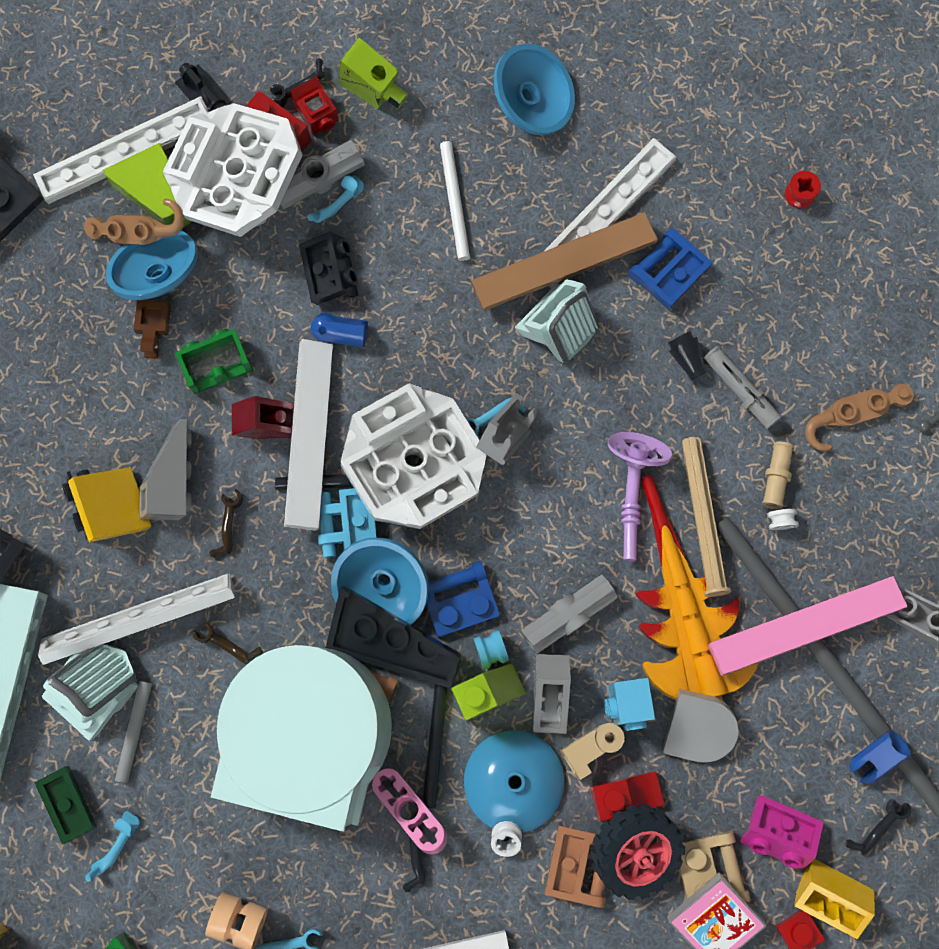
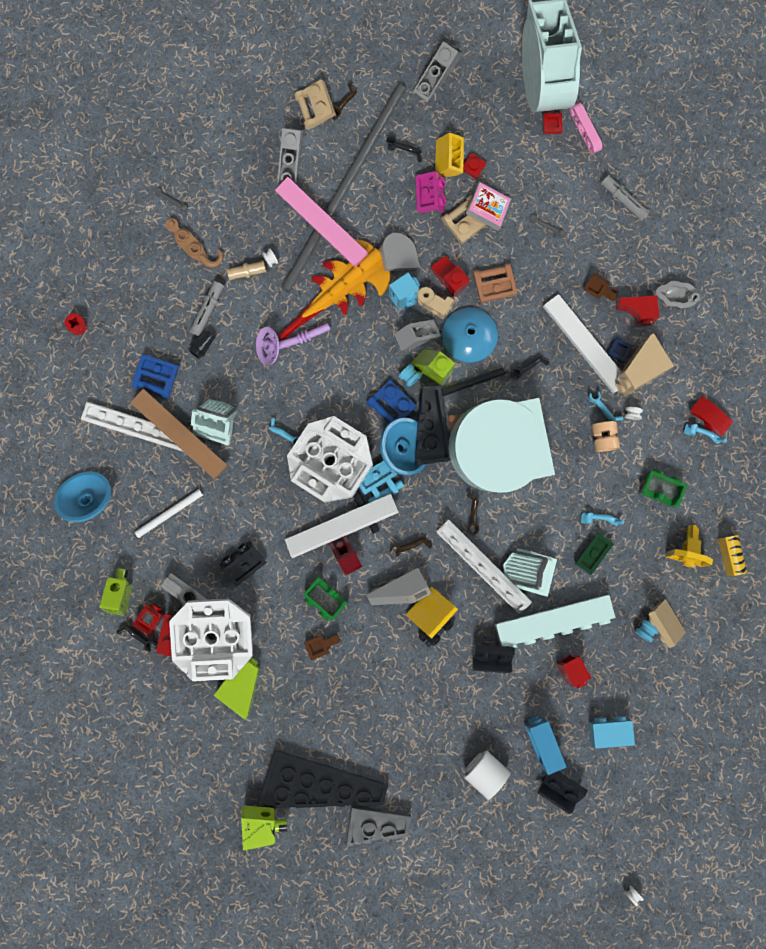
camera: 120 degrees left, 5 degrees up
(88, 165) = (225, 718): white tile -> none
(133, 732) = (541, 539): light grey bar -> none
(135, 228) = (270, 683): medium nougat piece -> none
(152, 268) = (283, 668): dark azure dish -> none
(196, 83) = (169, 689): black hinge -> none
(339, 330) = (274, 539): blue piece -> none
(353, 187) = (186, 575): medium azure piece -> none
(431, 823) = (511, 362): bright pink beam -> none
(506, 431) = (291, 419): light grey hinge -> none
(513, 844) = (500, 324): white bush -> none
(569, 614) = (372, 344): light grey piece -> none
(646, 871) = (475, 256): black wheel -> none
(704, 518) = (287, 298): tan axle -> none
(884, 753) = (369, 159): blue piece -> none

